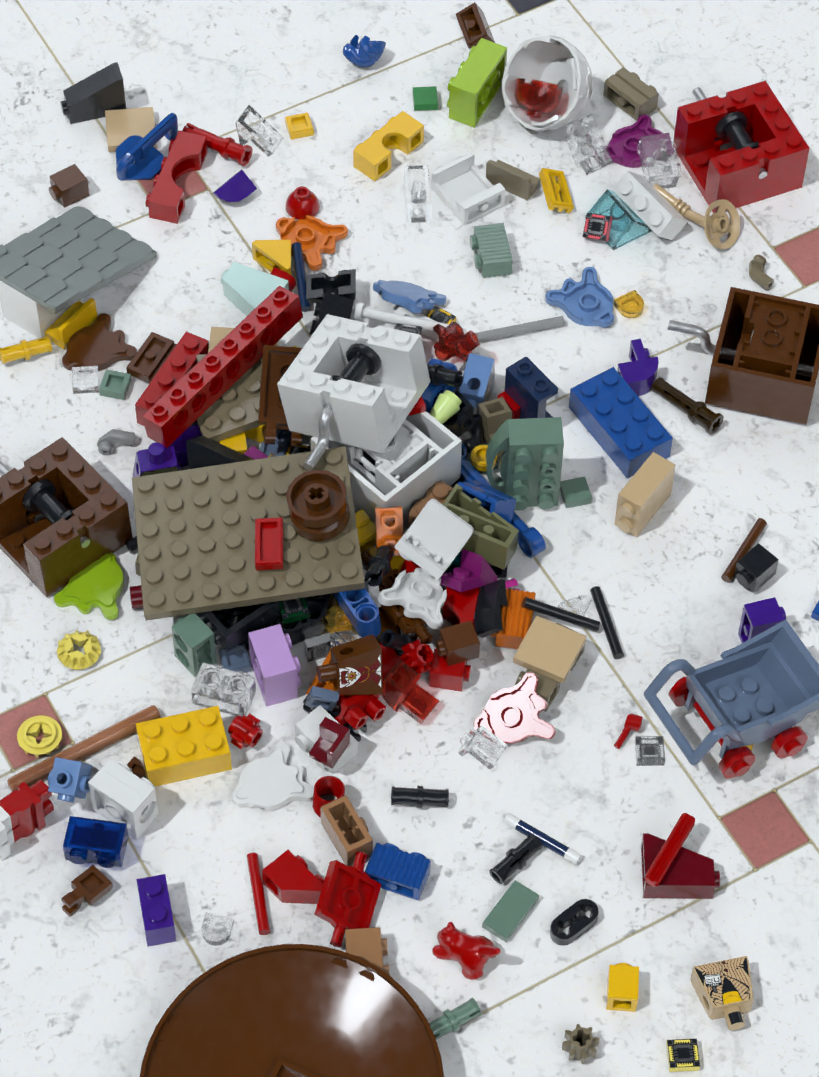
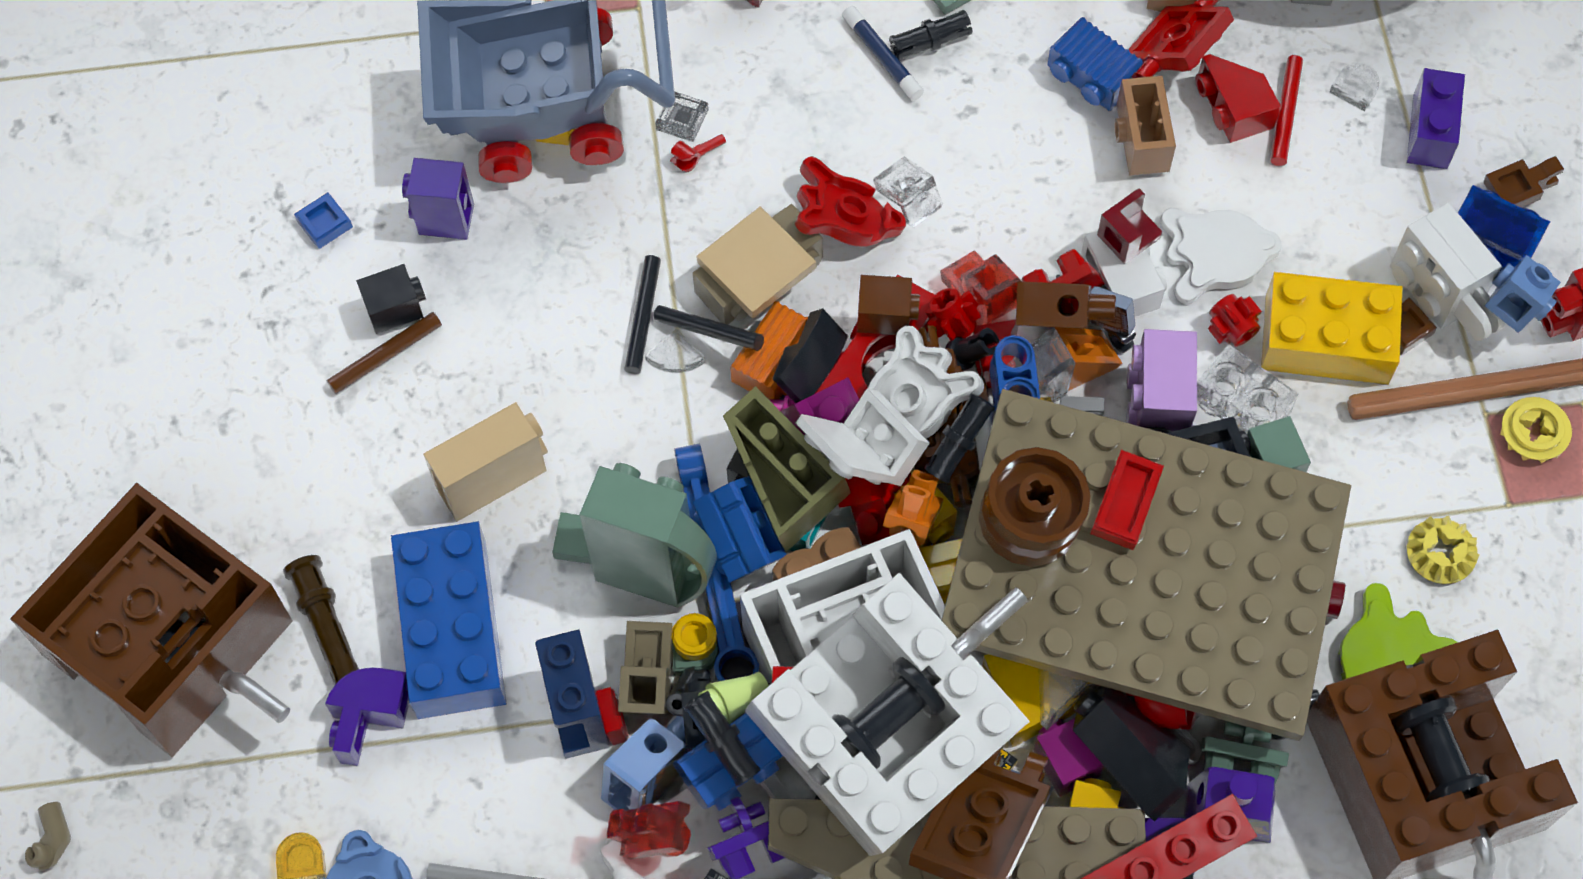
camera: 155 degrees left, 10 degrees up
(326, 785) = (1157, 170): red piece -> none
(419, 796) = (1023, 153): black pin -> none

